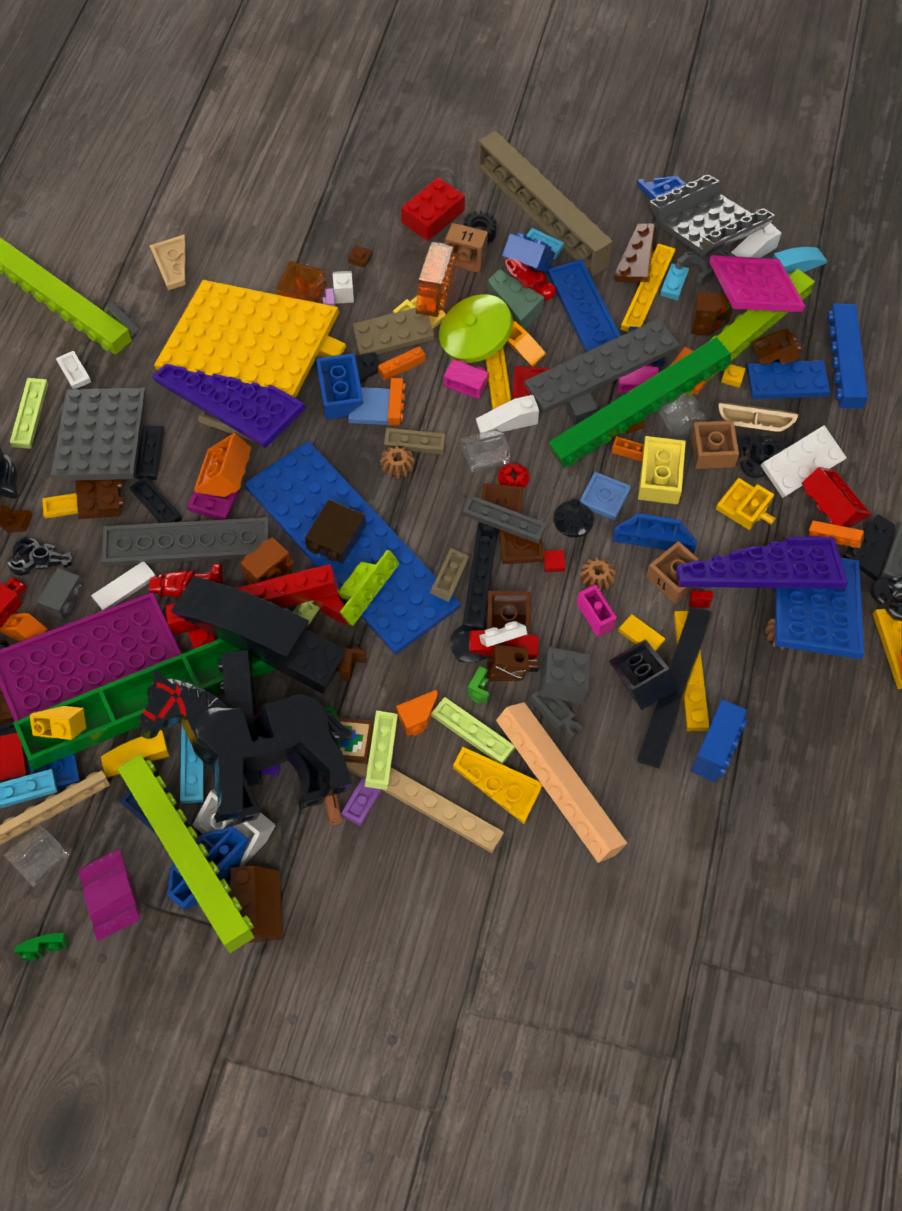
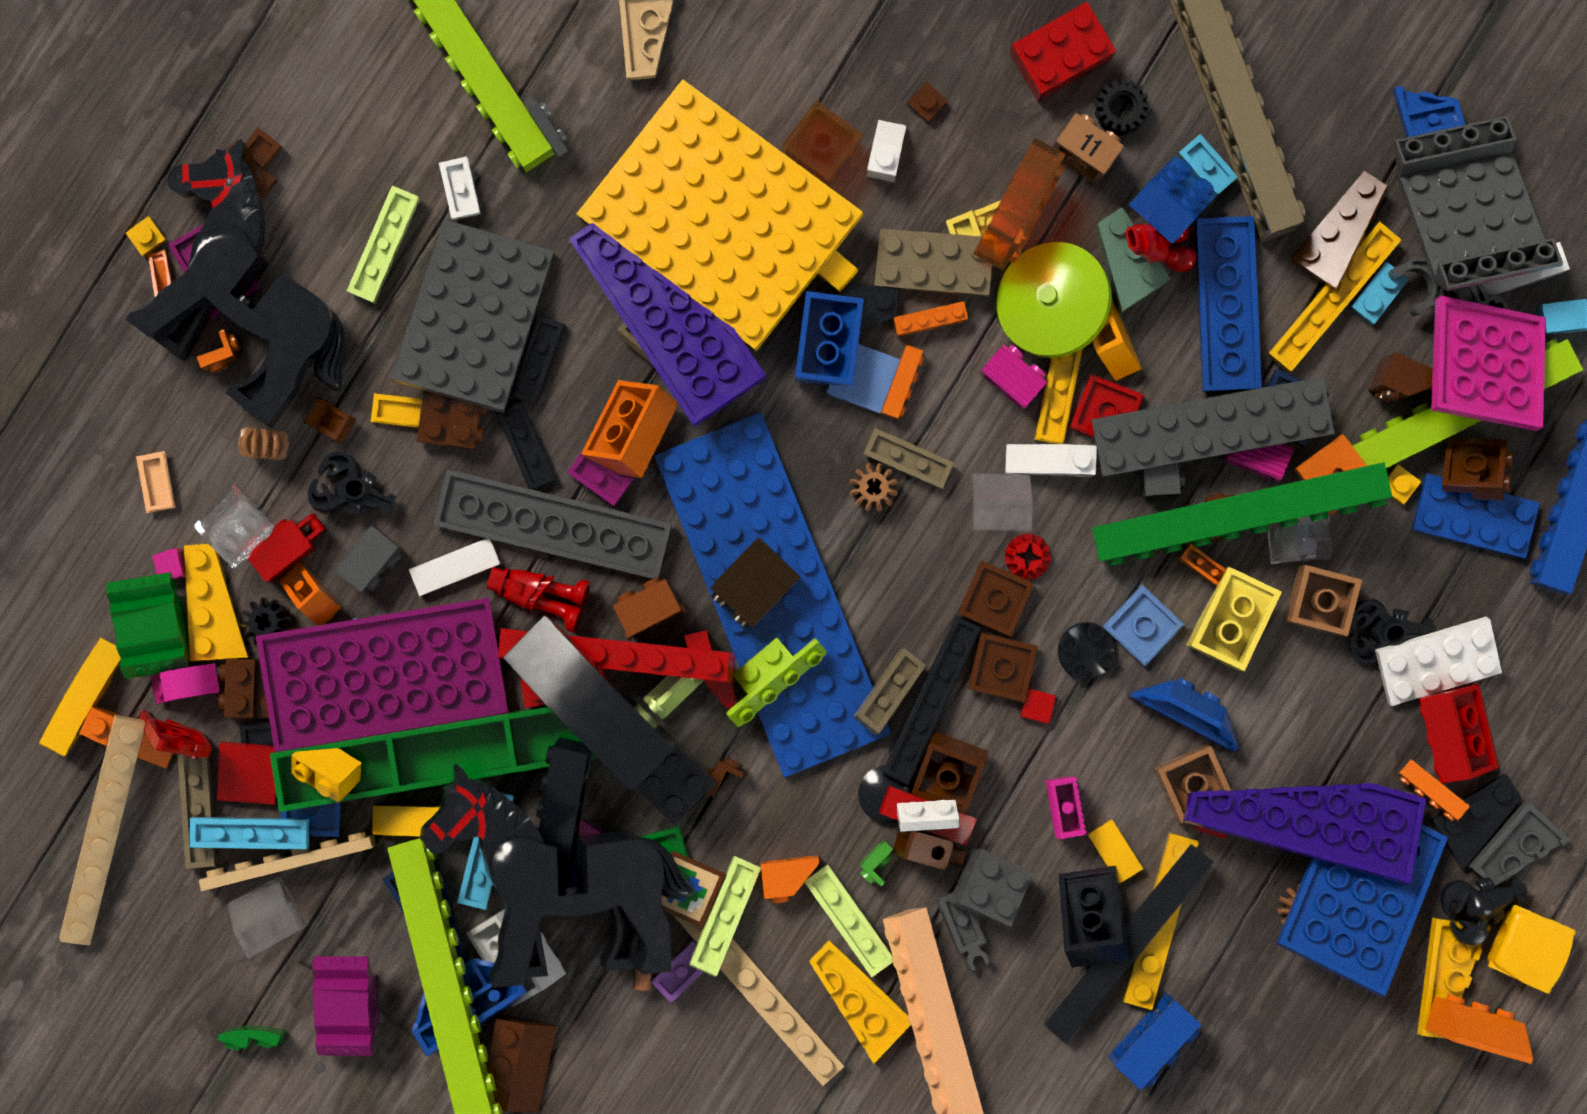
camera: 20 degrees right, 25 degrees up
(329, 299) = (856, 179): lavender plate -> none
(504, 519) = (989, 633): dark grey plate -> none
(604, 572) = (1098, 749): medium nougat gear -> none
(746, 504) = (1331, 703): yellow plate -> none
(757, 417) = (1404, 567): tan brick -> none

